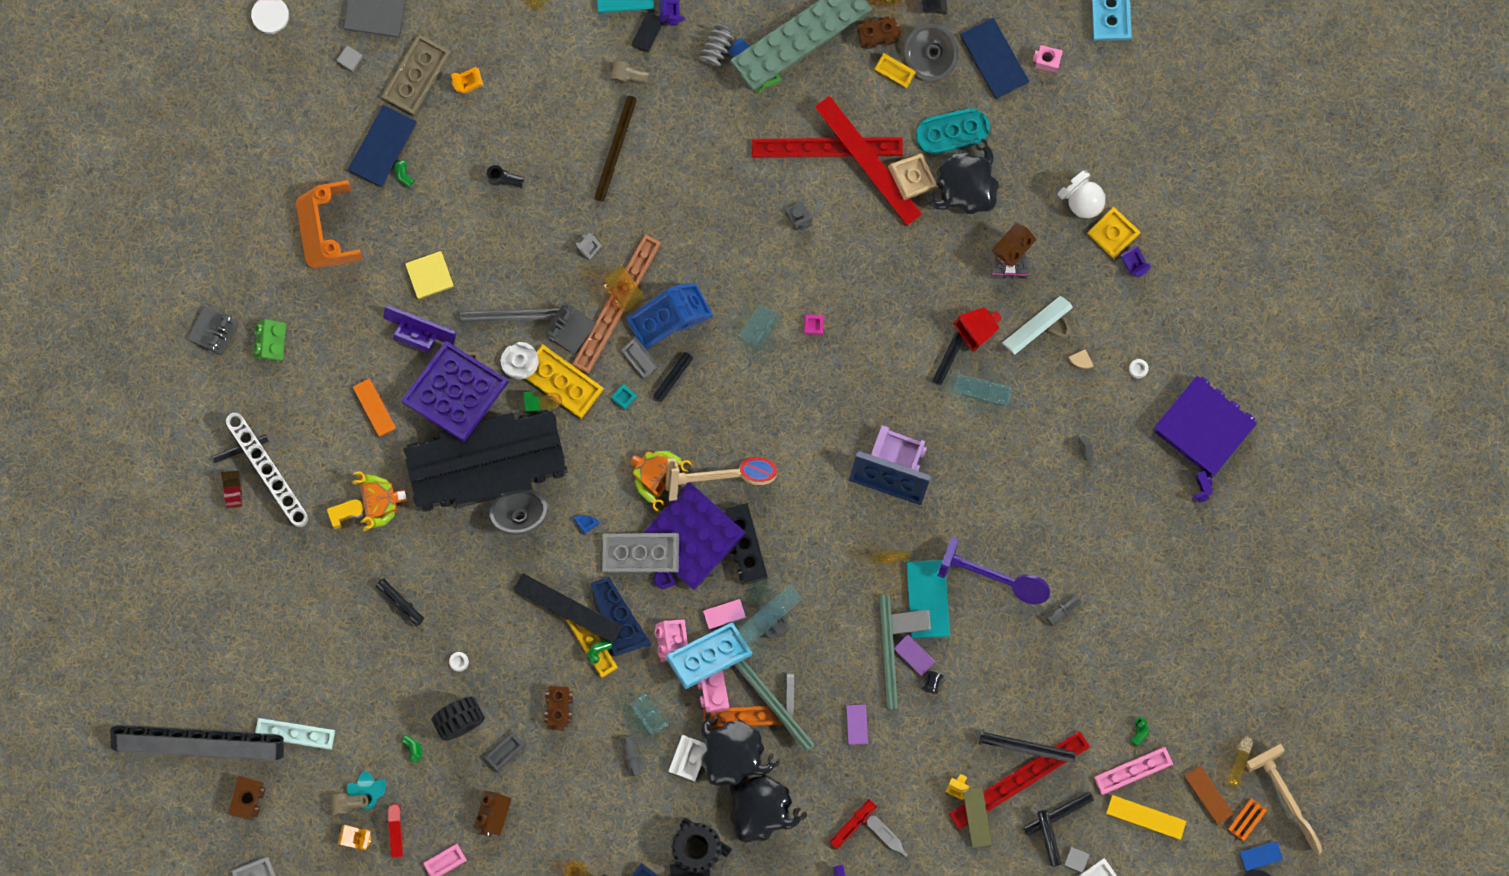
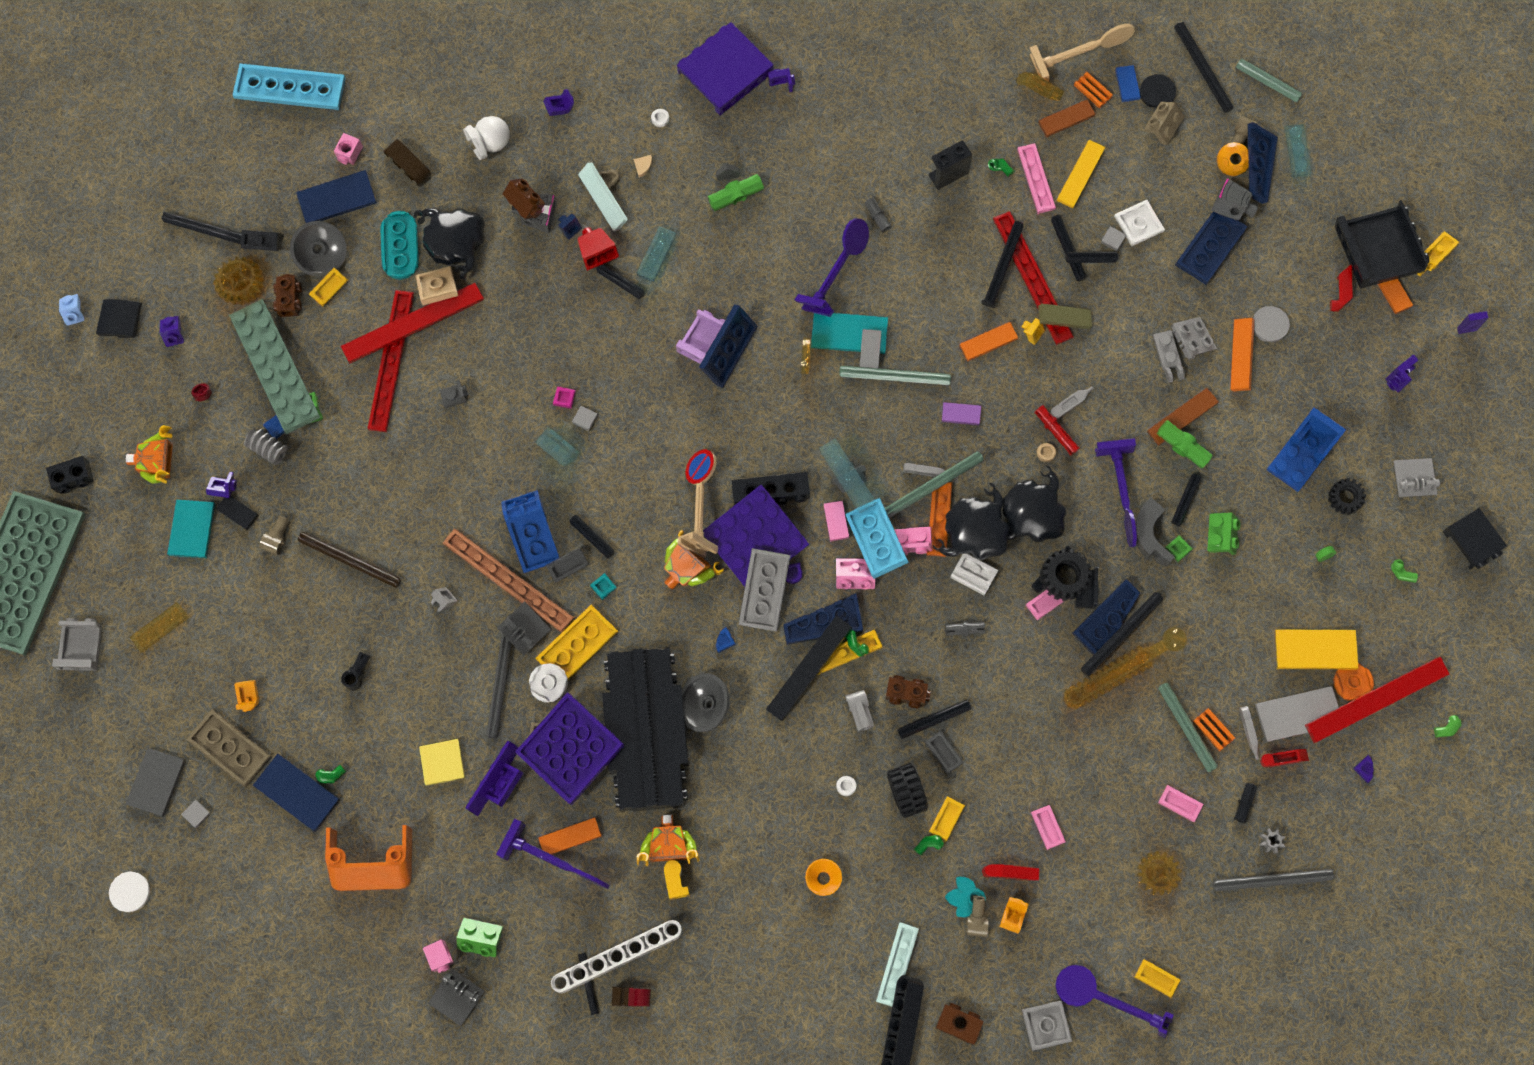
camera: 75 degrees left, 5 degrees down
(246, 306) = (438, 956): none -> bright pink brick
(361, 642) = (828, 867): none -> light orange piece
(362, 355) = (513, 840): none -> dark purple piece
(406, 608) = (784, 831): black pin -> none
(440, 762) = (946, 818): none -> yellow tile
(492, 813) = (1006, 771): reddish brown brick -> none
(535, 663) = (859, 706): none -> light grey piece
(536, 738) = (934, 719): none -> black axle
(537, 403) = (596, 662): leg -> none
(621, 278) = (484, 566): clear yellow brick -> none
(649, 714) = (926, 606): clear light blue hinge -> none
(667, 830) = (1043, 604): none -> bright pink tile
(795, 348) = (584, 418): none -> light grey tile
(828, 816) = (1046, 452): none -> tan tile
(914, 654) = (901, 351): medium lavender tile -> none
(932, 682) = (930, 339): black bush -> none
(940, 743) = (988, 341): none -> orange tile
(999, 297) = (569, 225): none -> dark blue tile
(1043, 120) = (405, 159): none -> dark brown beam
(1064, 459) = (735, 192): none -> bright green piece
(1113, 232) = (527, 119): yellow tile -> none
(1126, 675) = (951, 164): none -> black panel

